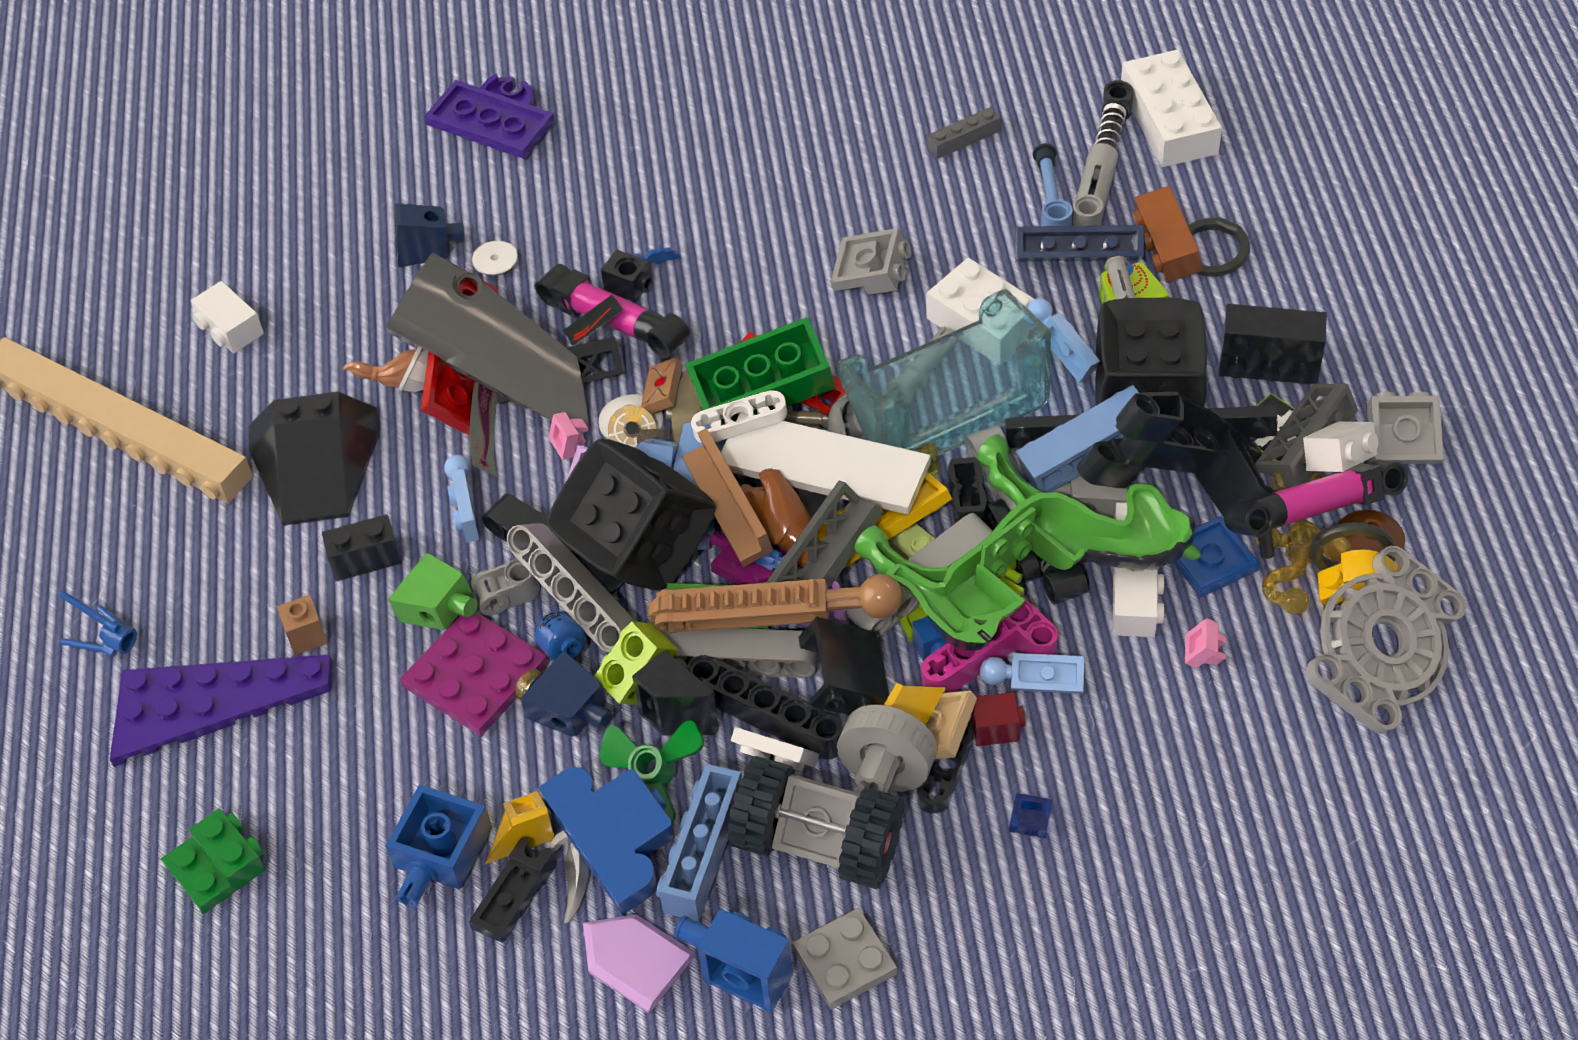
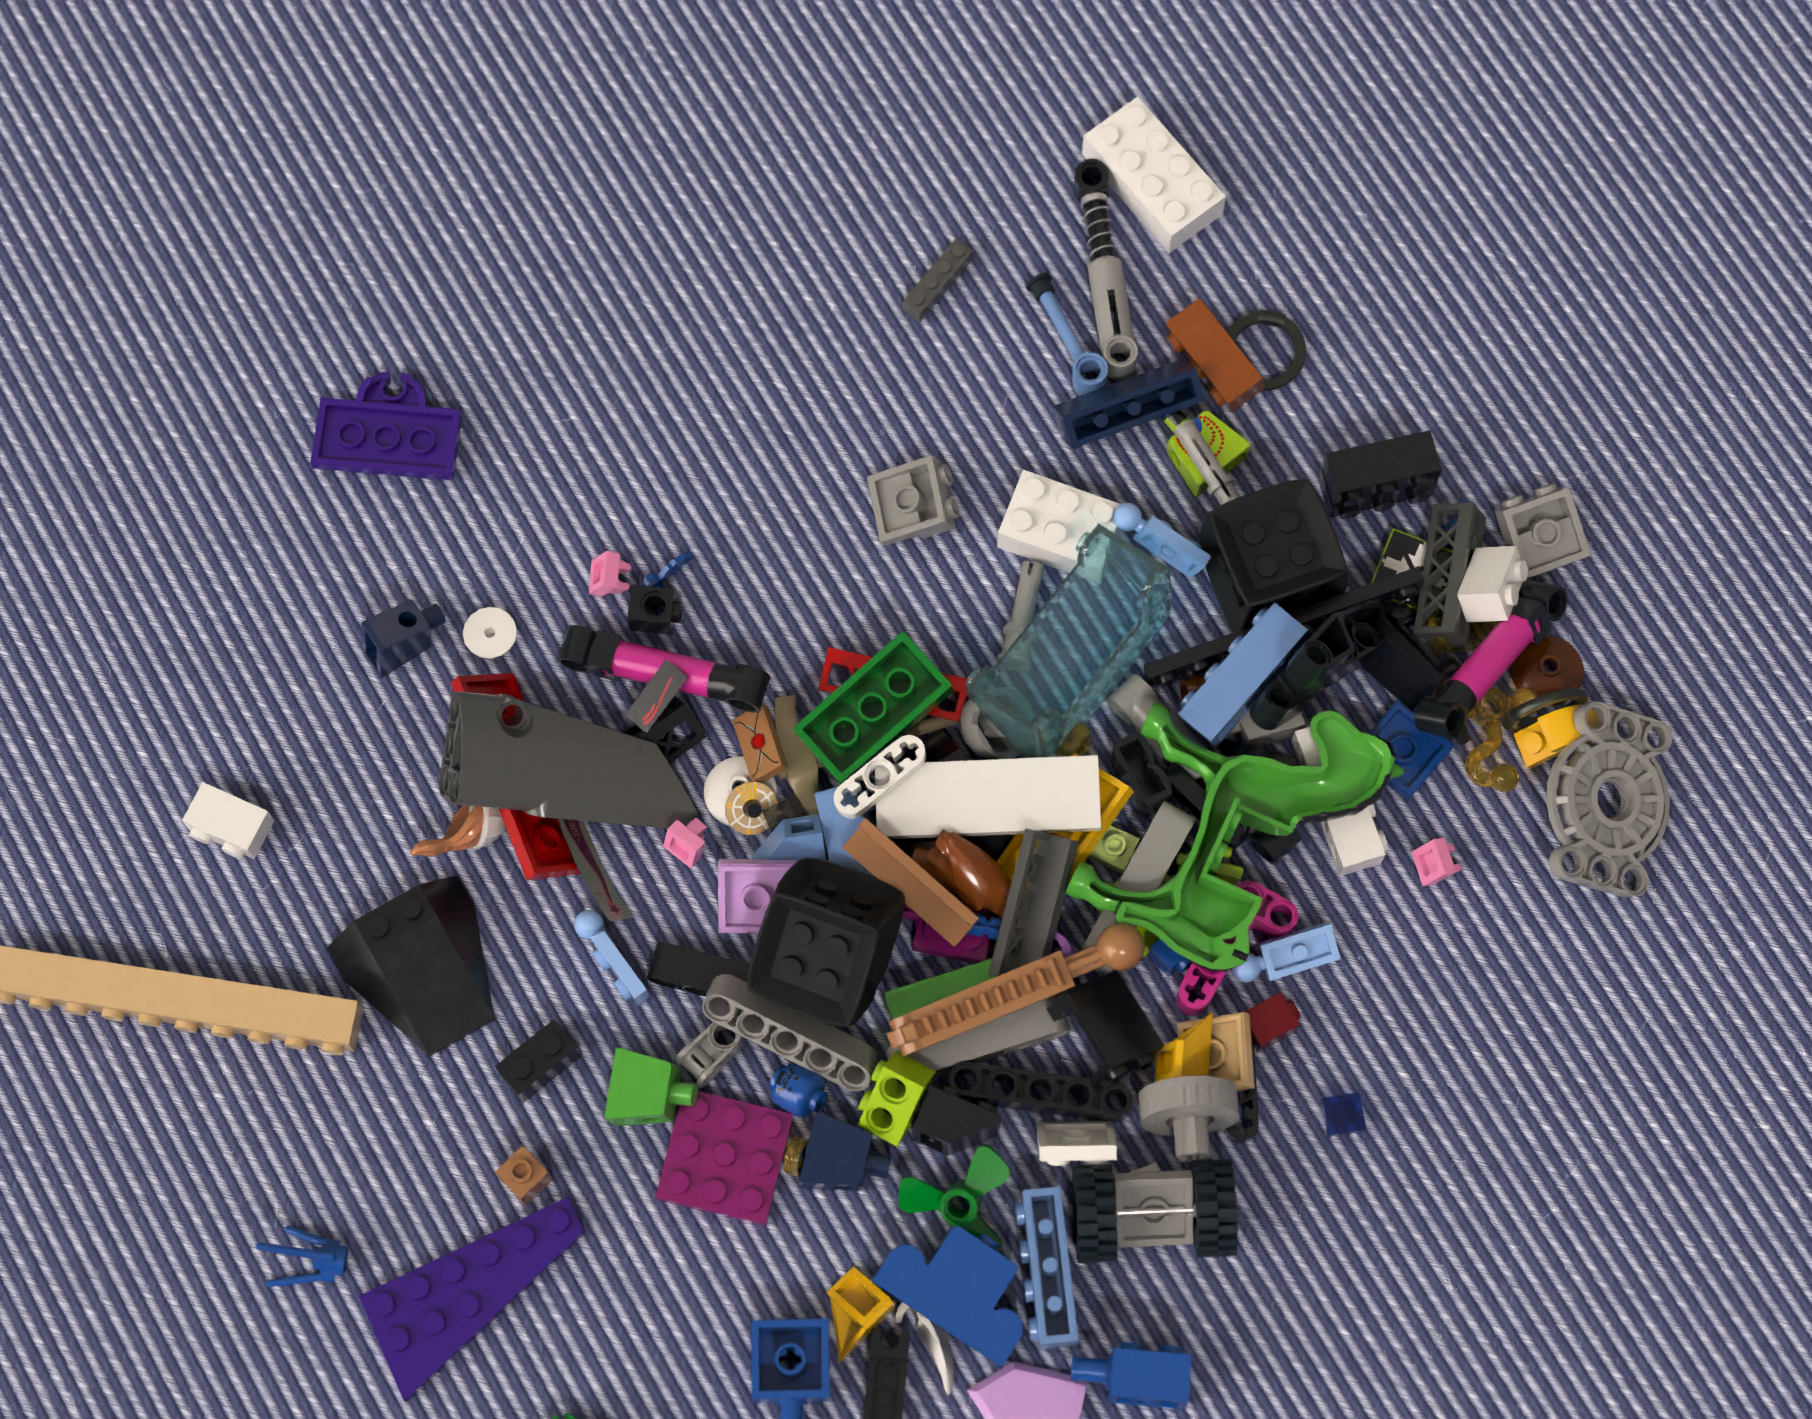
camera: 25 degrees left, 20 degrees up
(604, 243) = (605, 574): none -> bright pink tile
(844, 958) = (1229, 1330): light grey plate -> none

